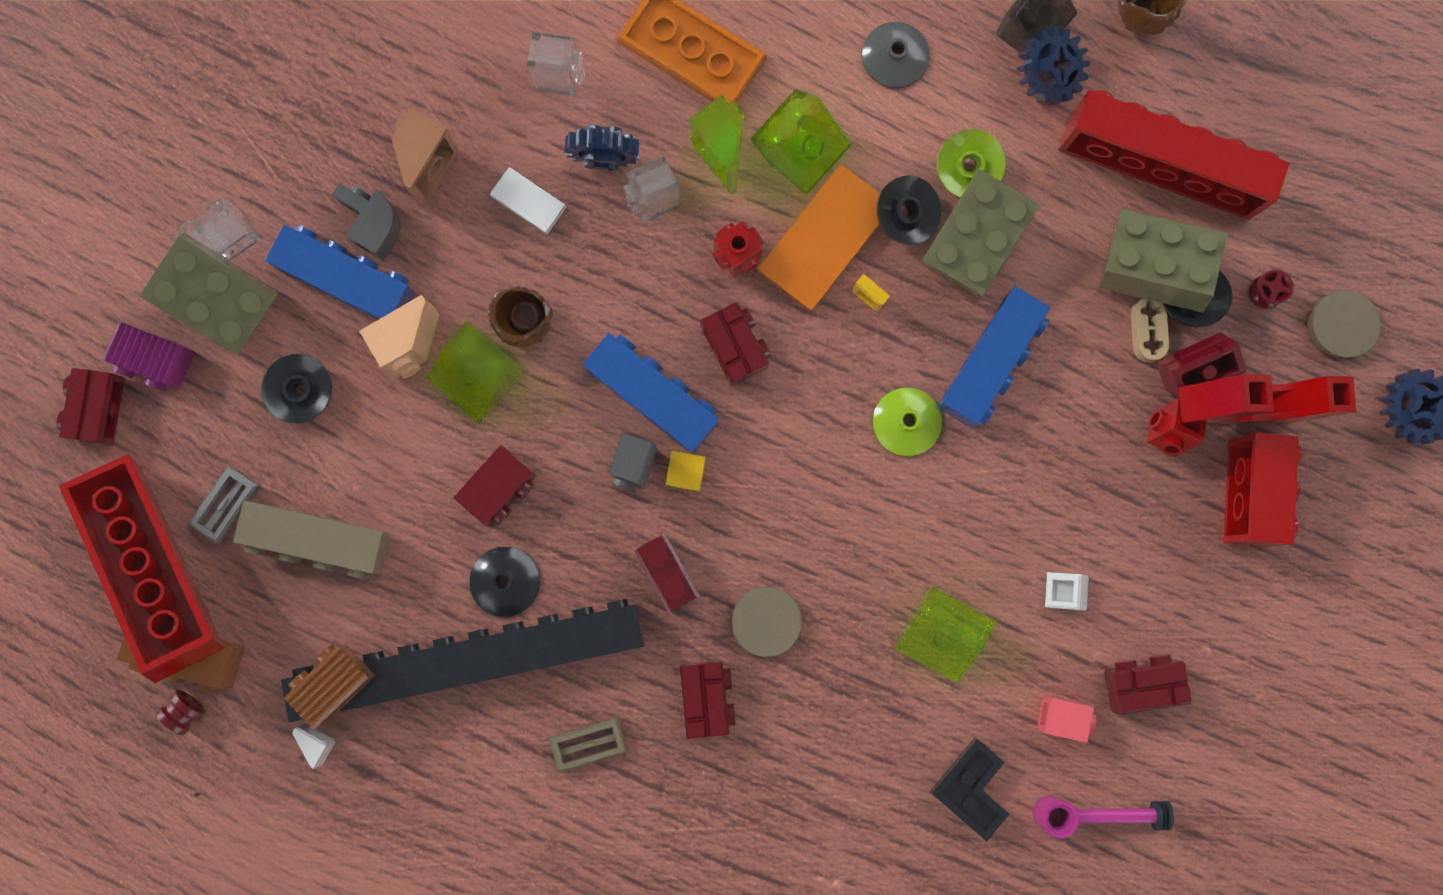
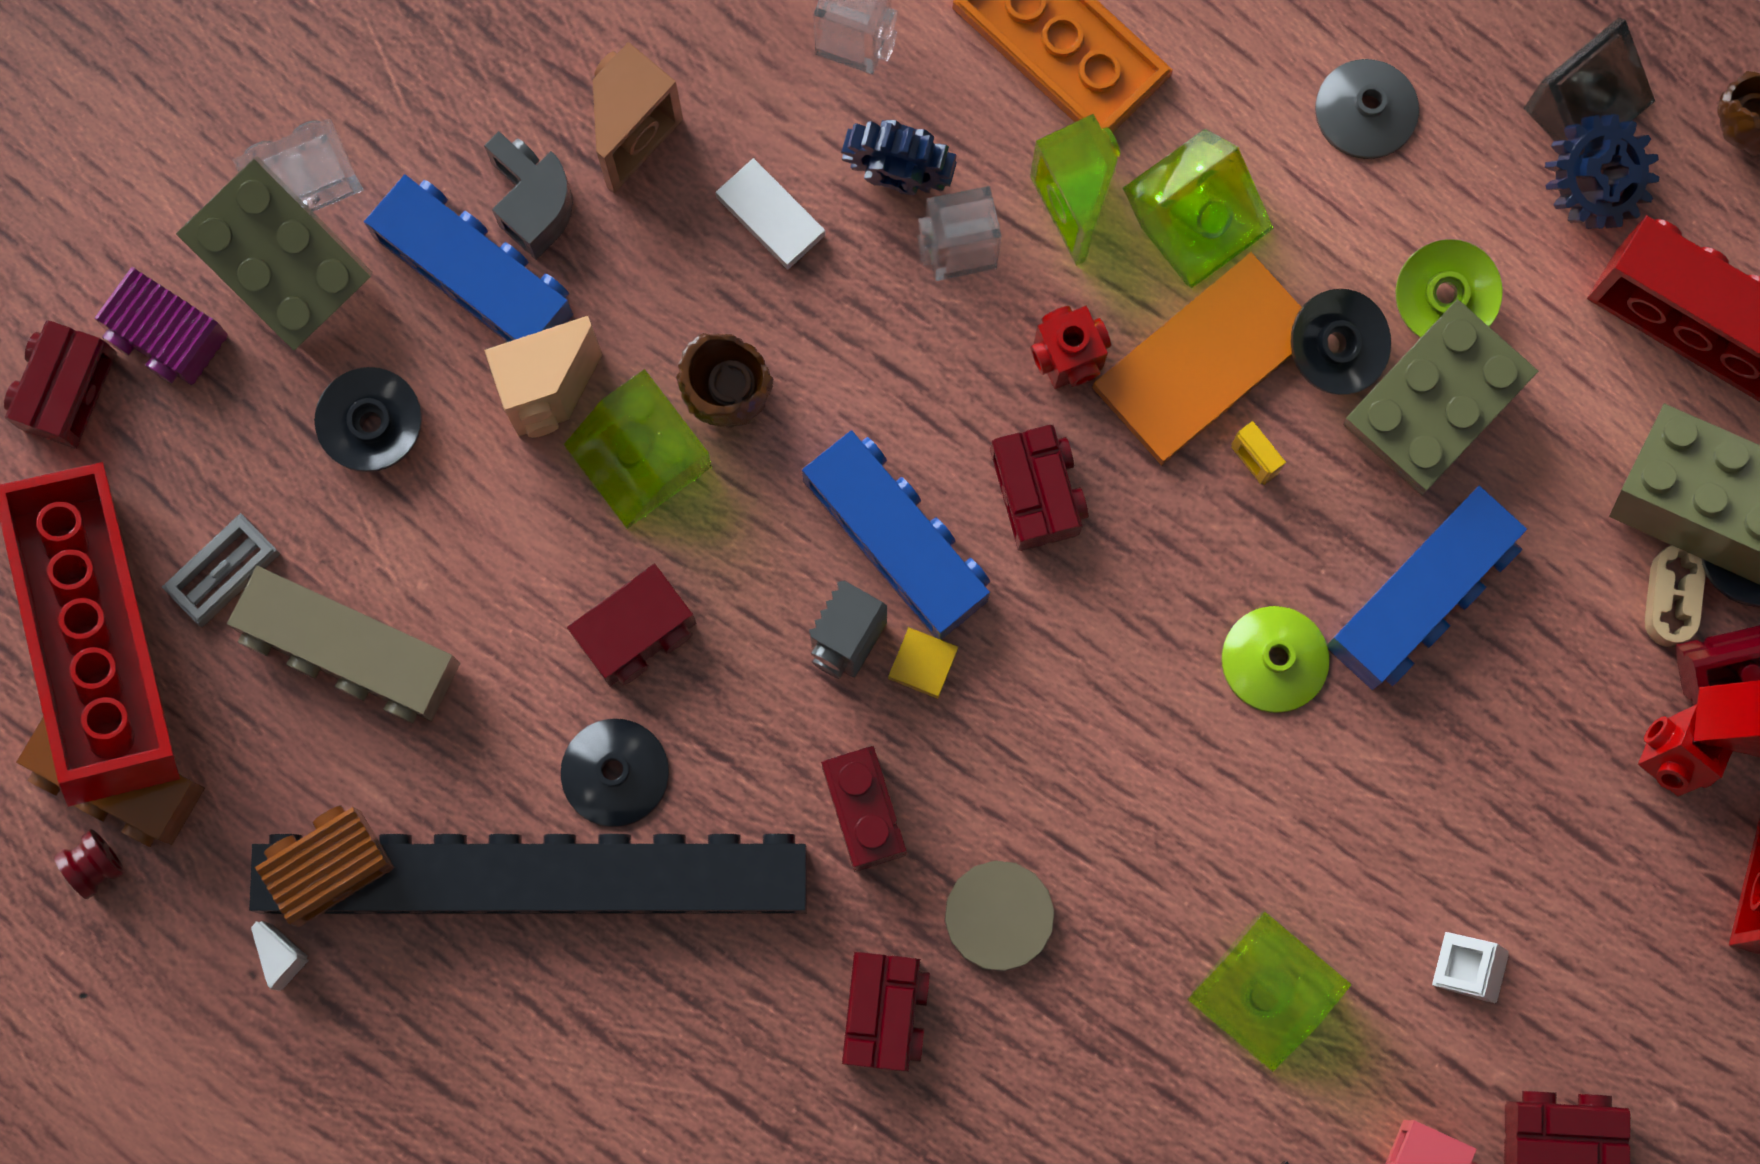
camera: 15 degrees right, 5 degrees down
(617, 735) = (642, 1049): dark tan tile -> none

